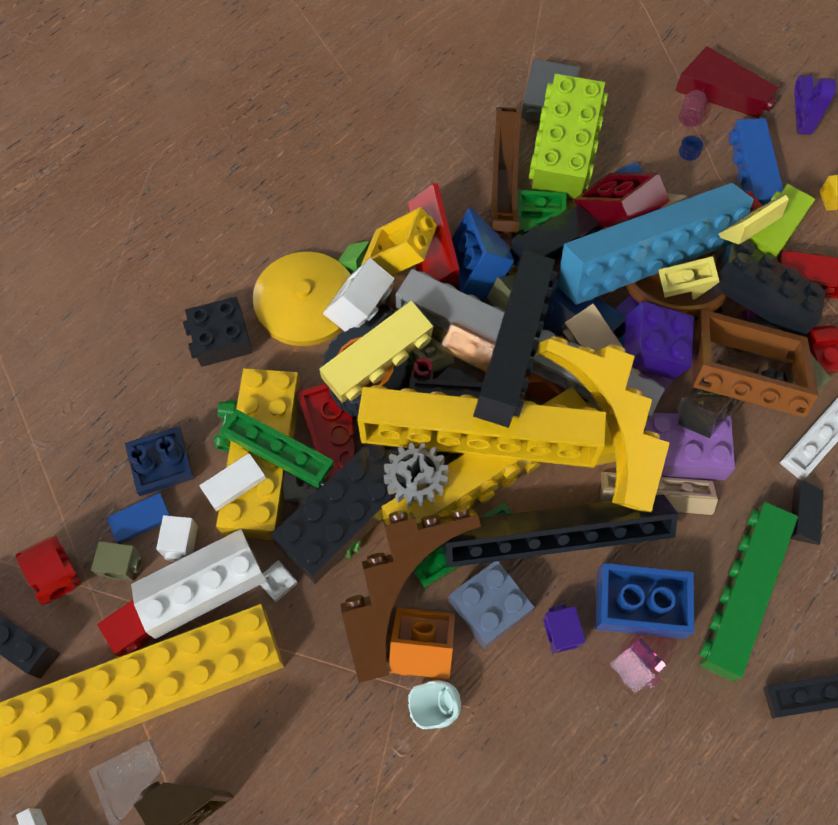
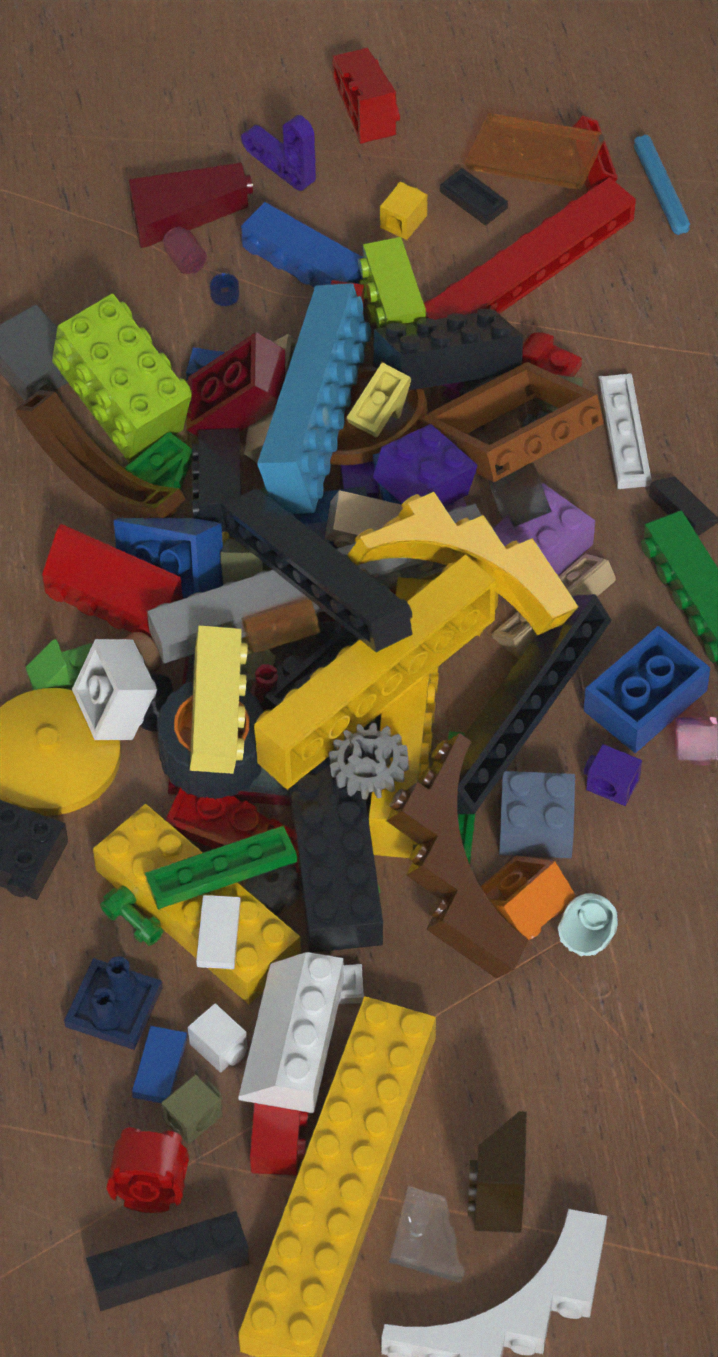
camera: 50 degrees left, 10 degrees down
(402, 241) = (77, 597): yellow window -> none
(755, 221) = (378, 302): light yellow slope -> none

